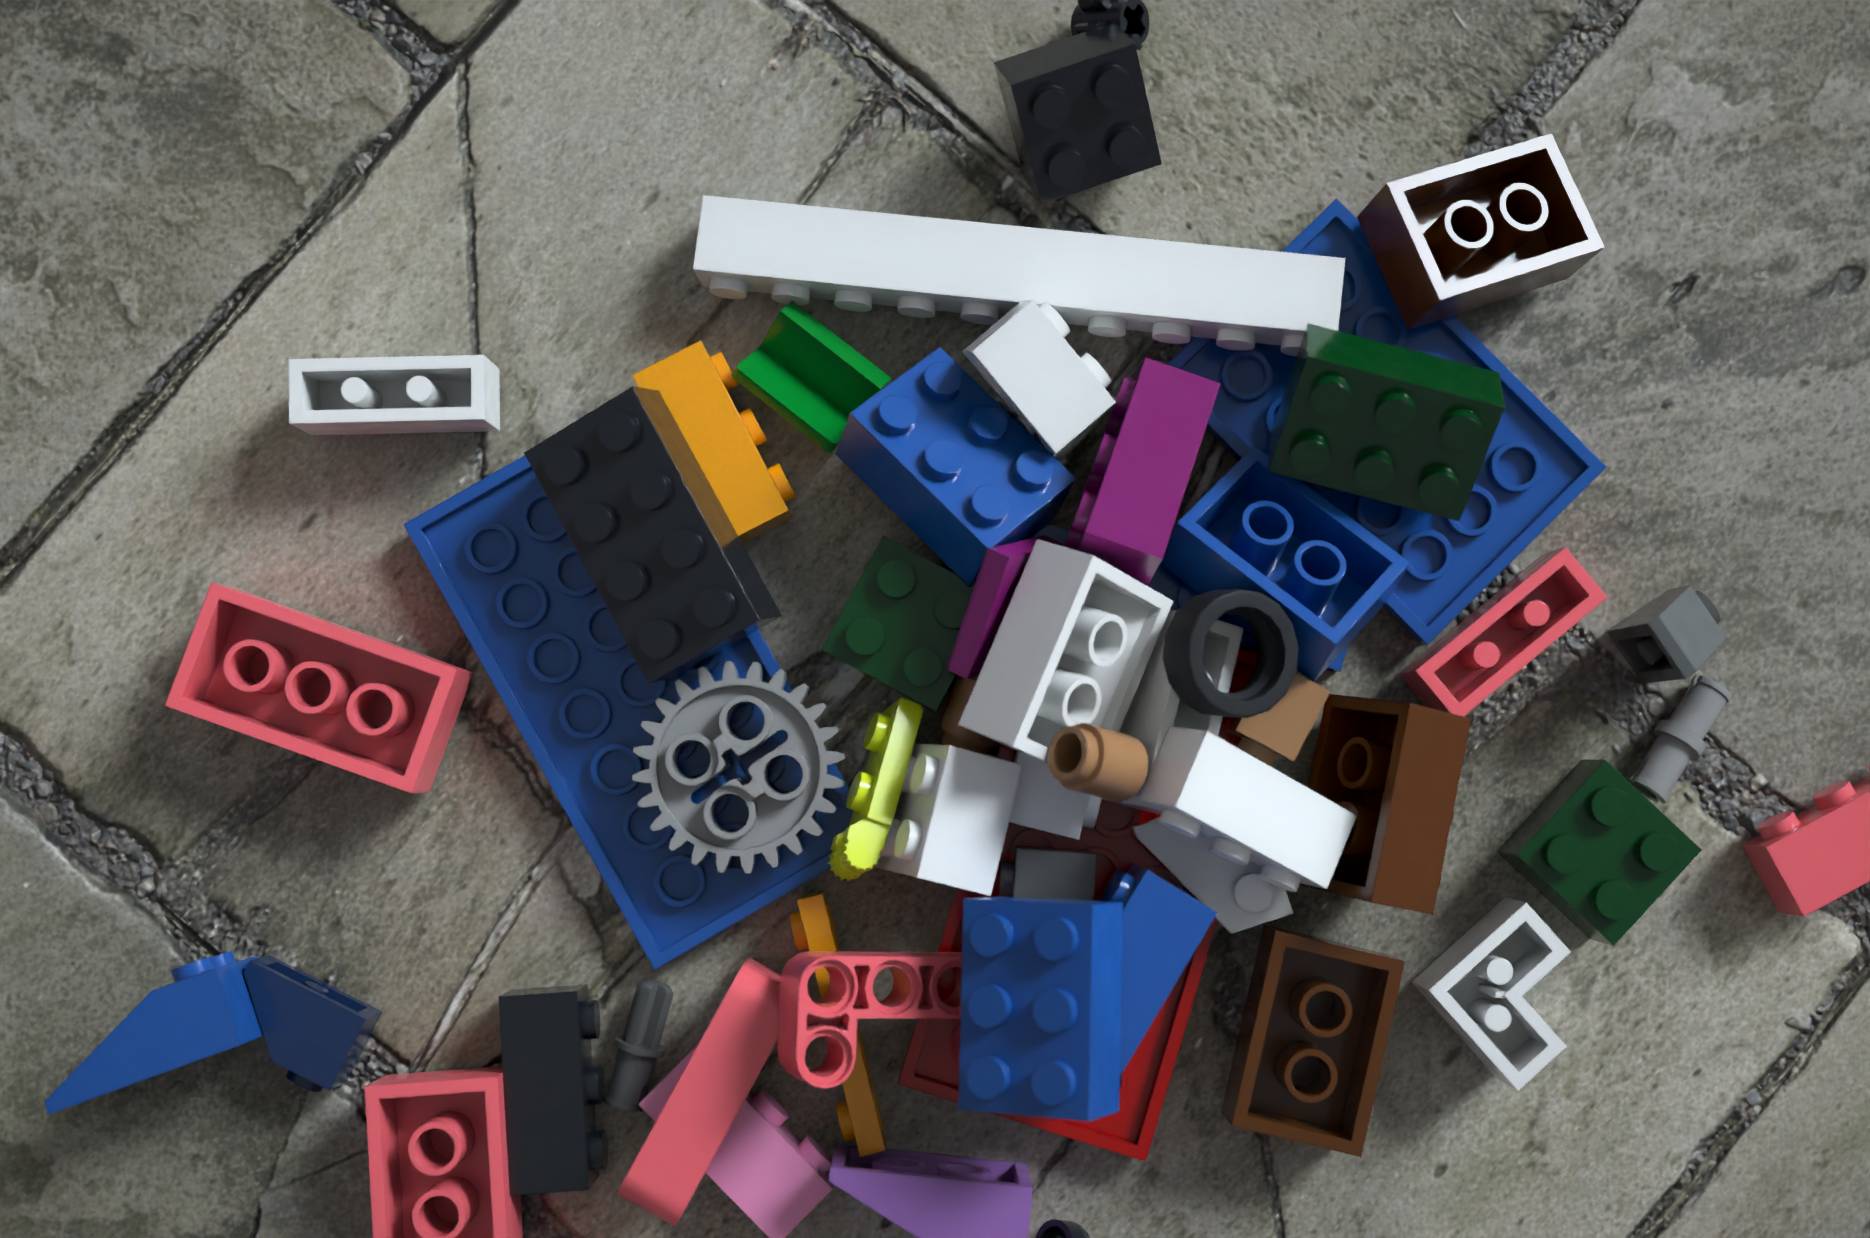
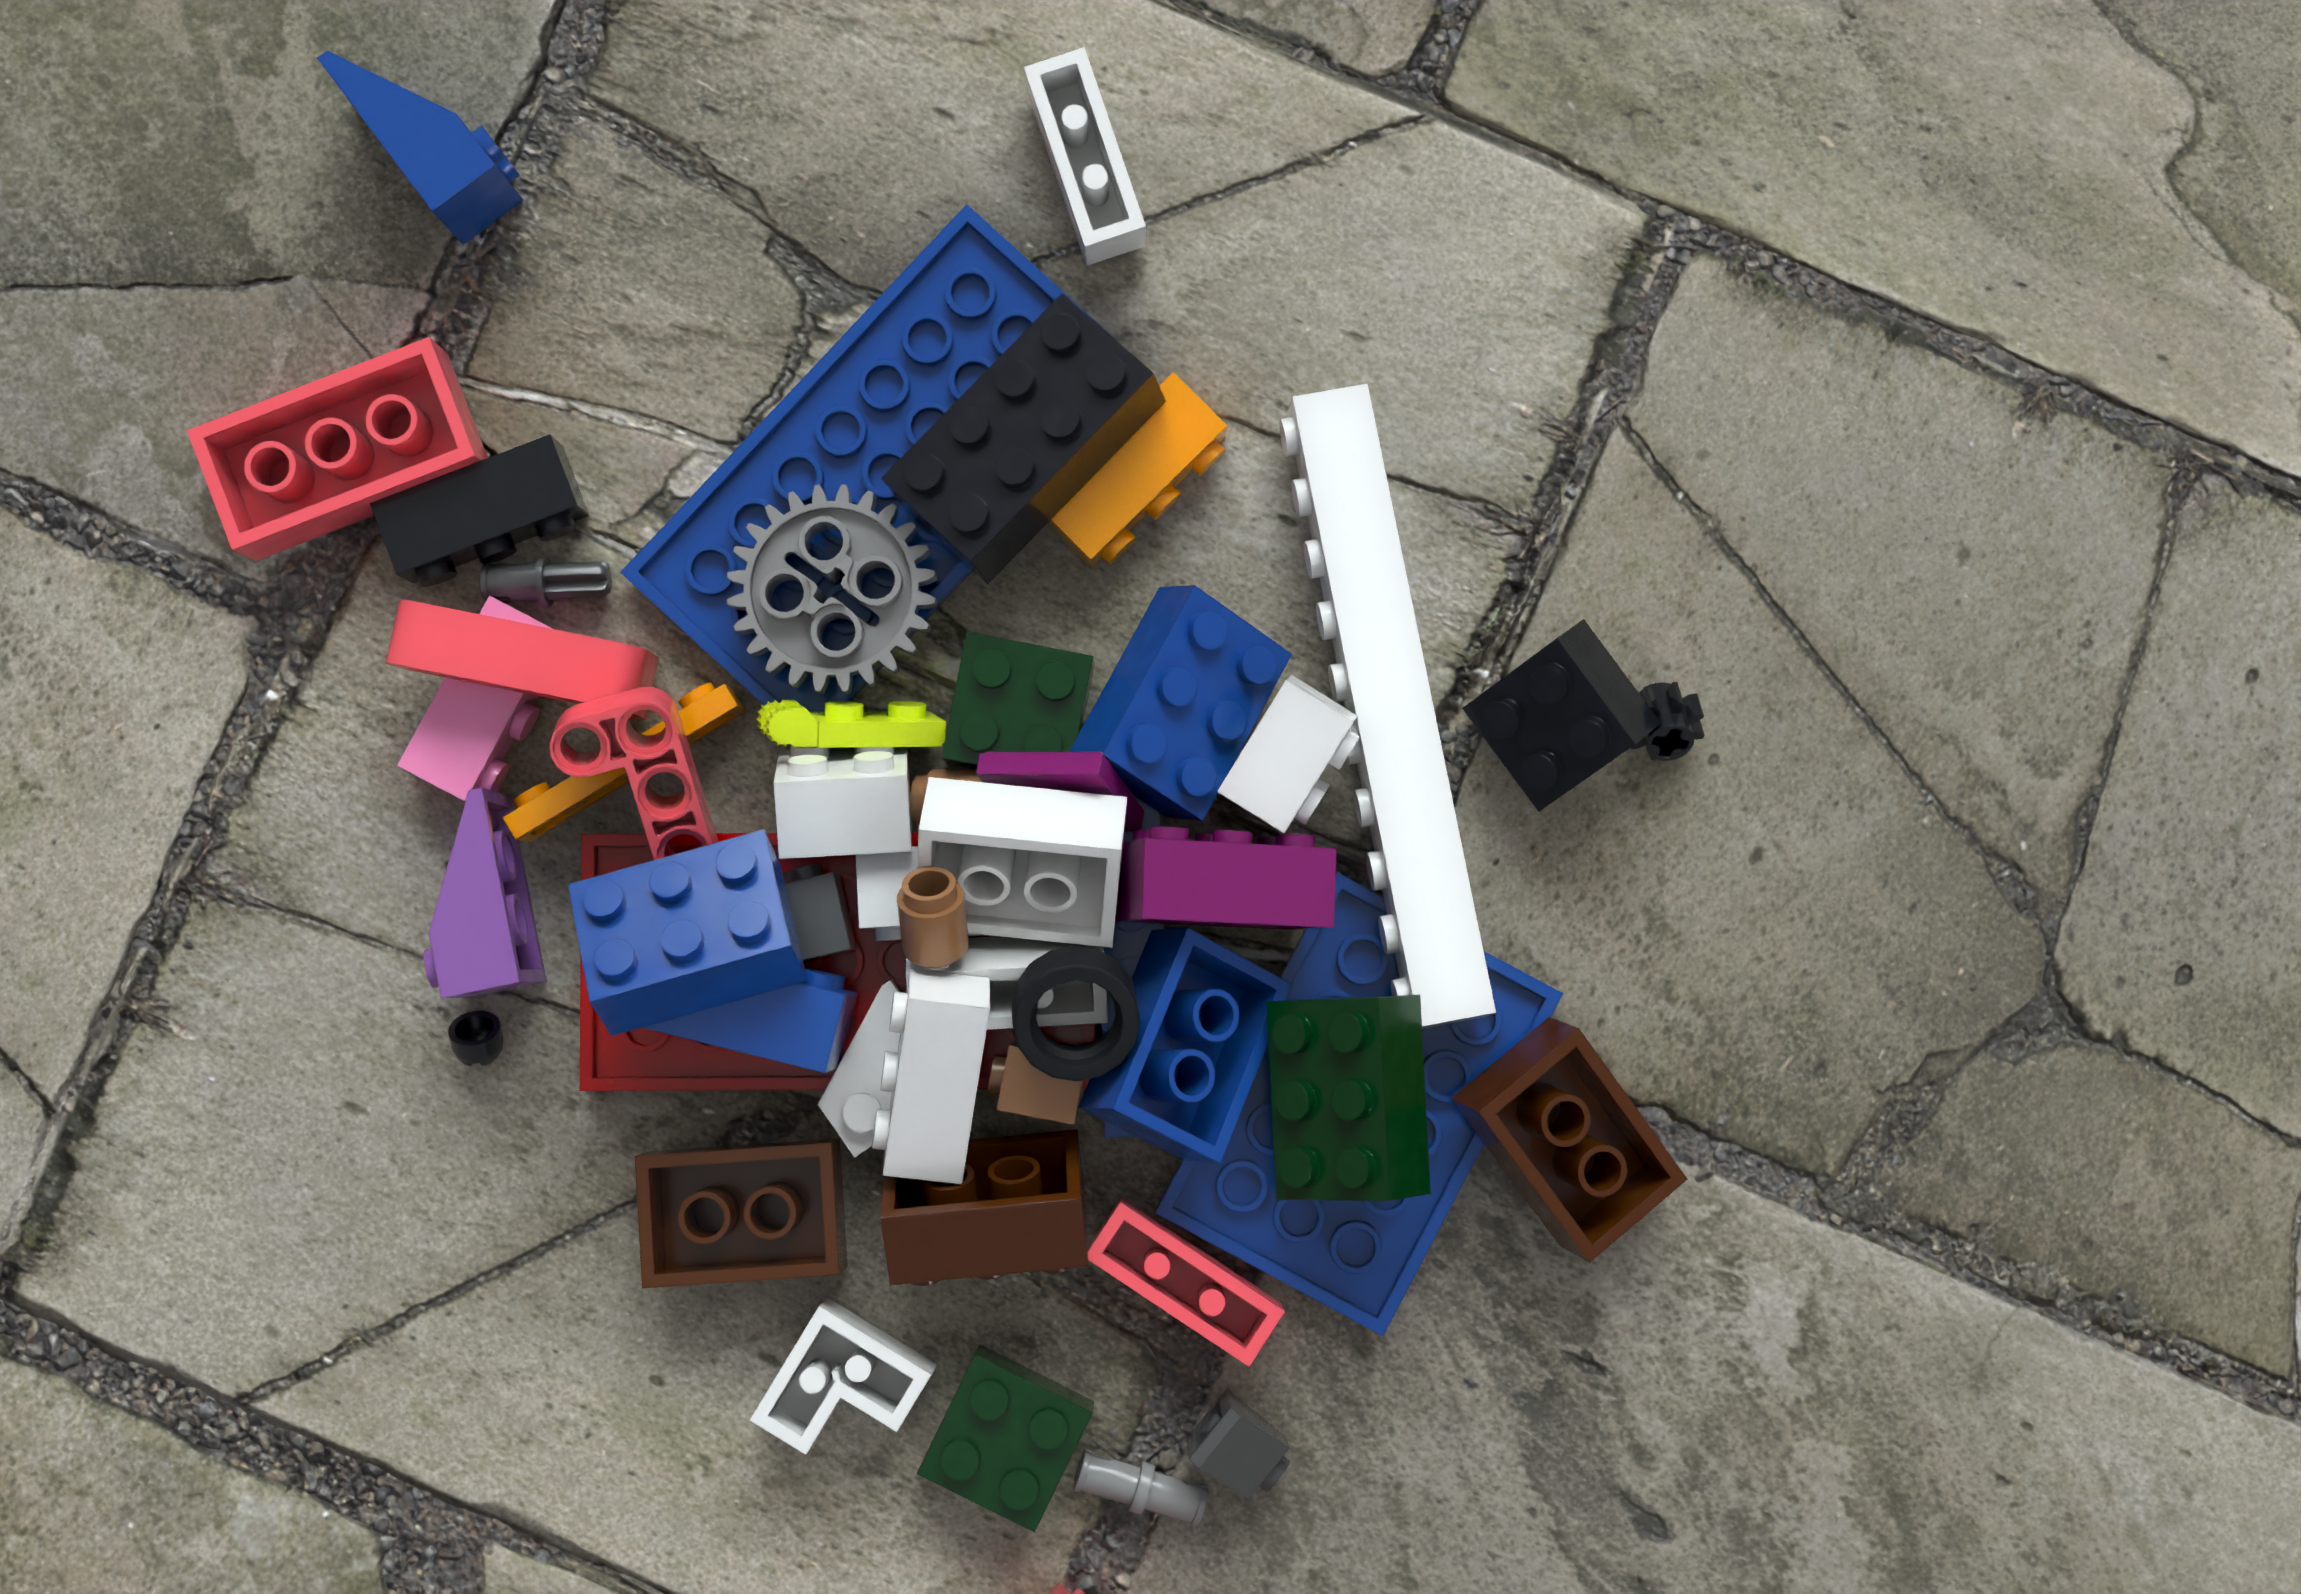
camera: 70 degrees right, 0 degrees up
(308, 1023) = (473, 267): dark blue slope -> none
(319, 689) = (786, 177): coral brick -> none
(809, 376) = (1227, 540): green panel -> none

